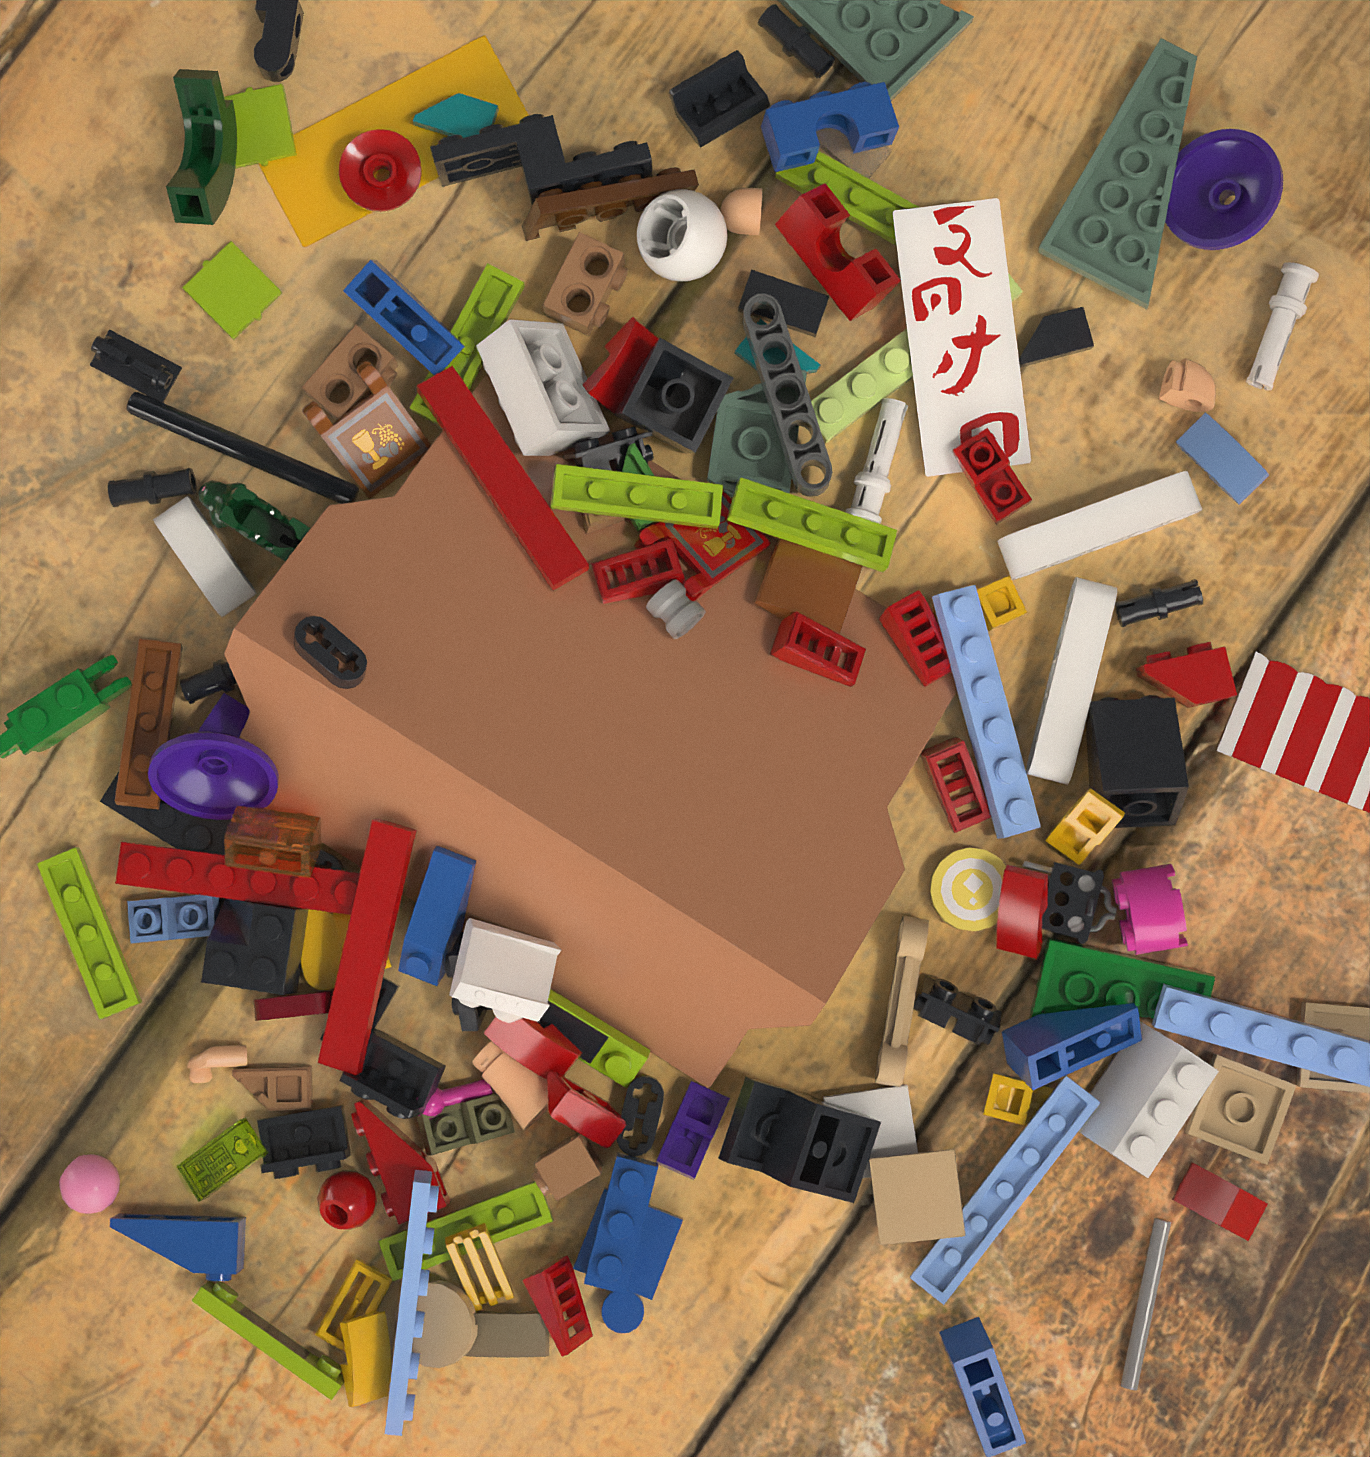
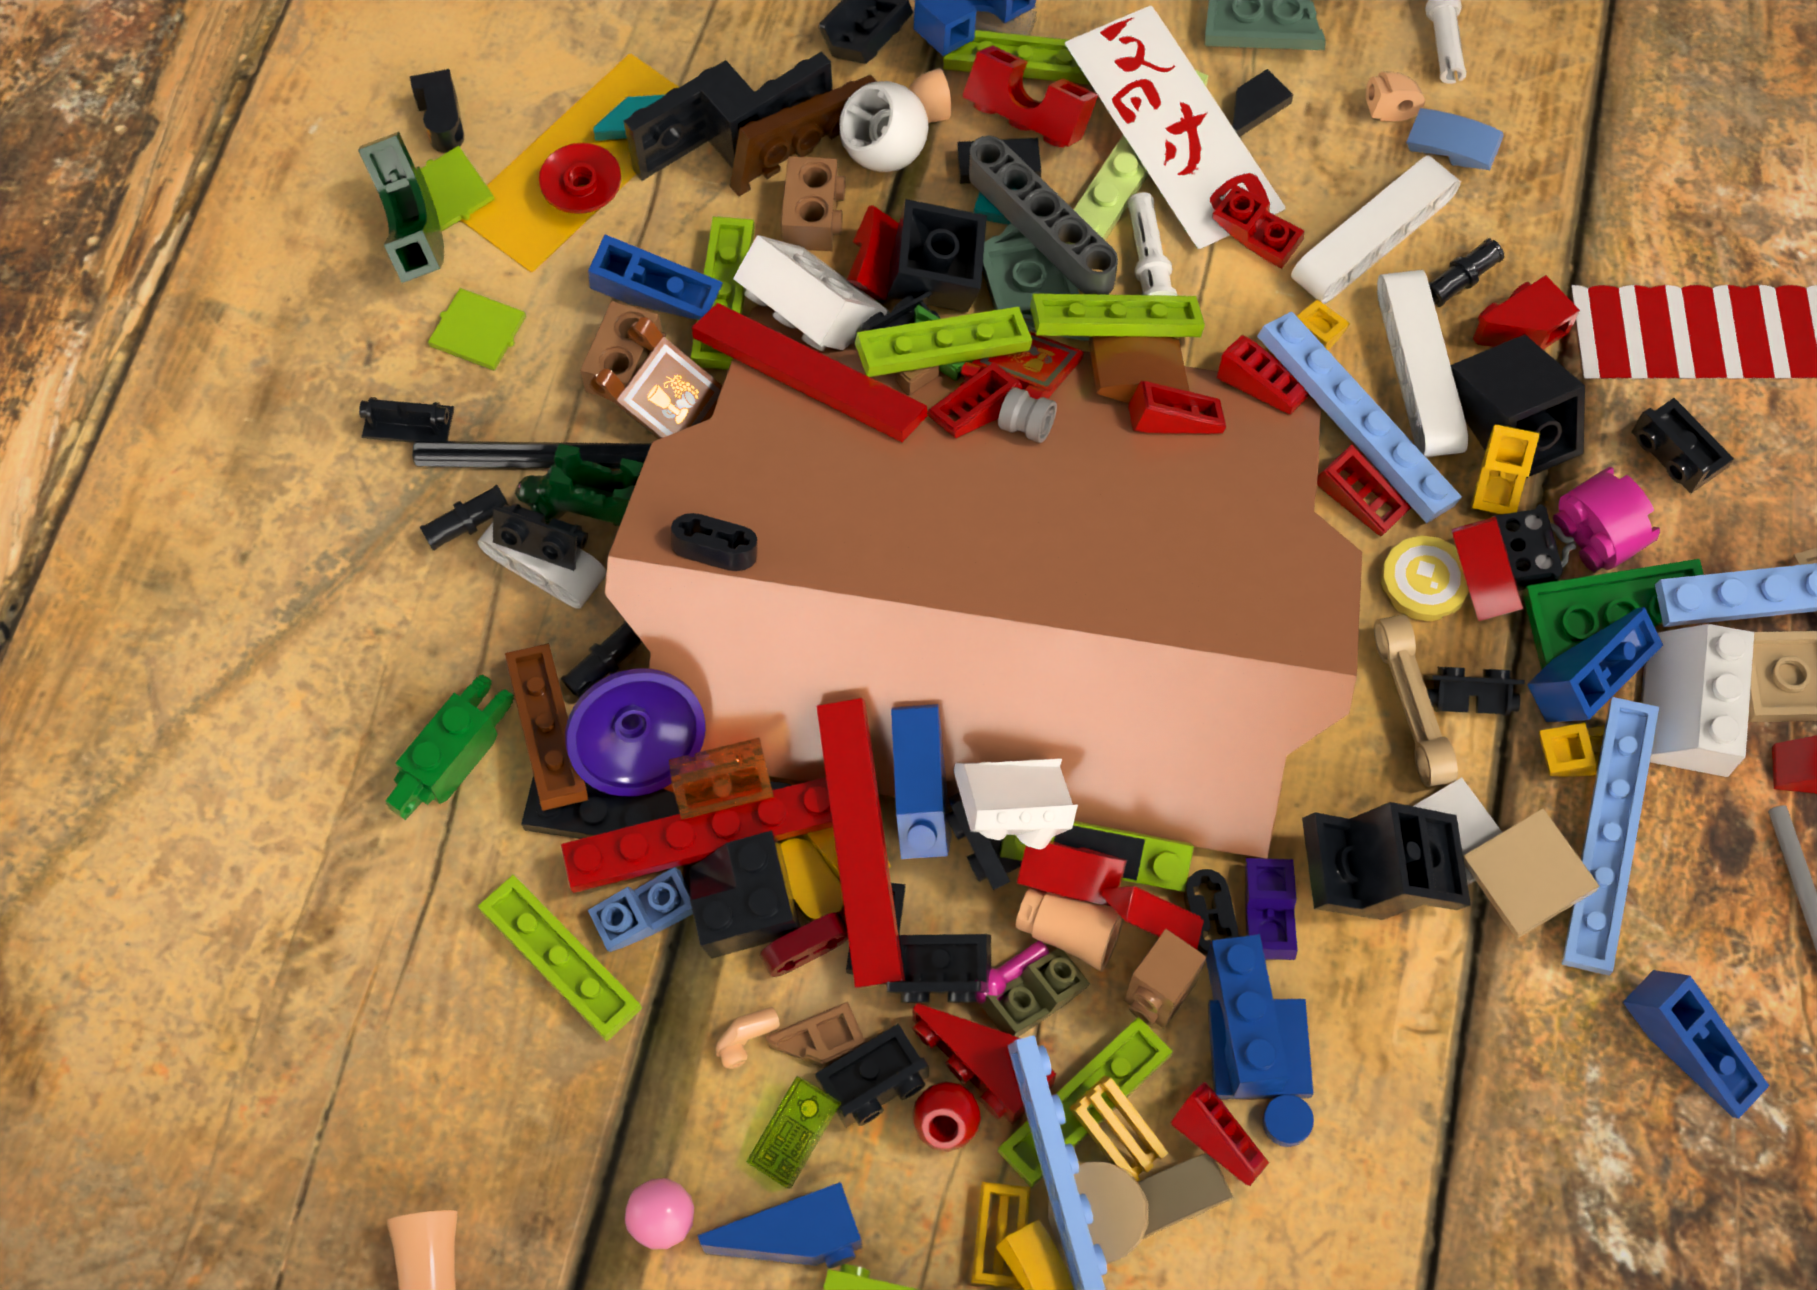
camera: 20 degrees left, 20 degrees down
(188, 532) = (527, 533): none -> black hinge
(1263, 859) = (1681, 445): none -> black bracket

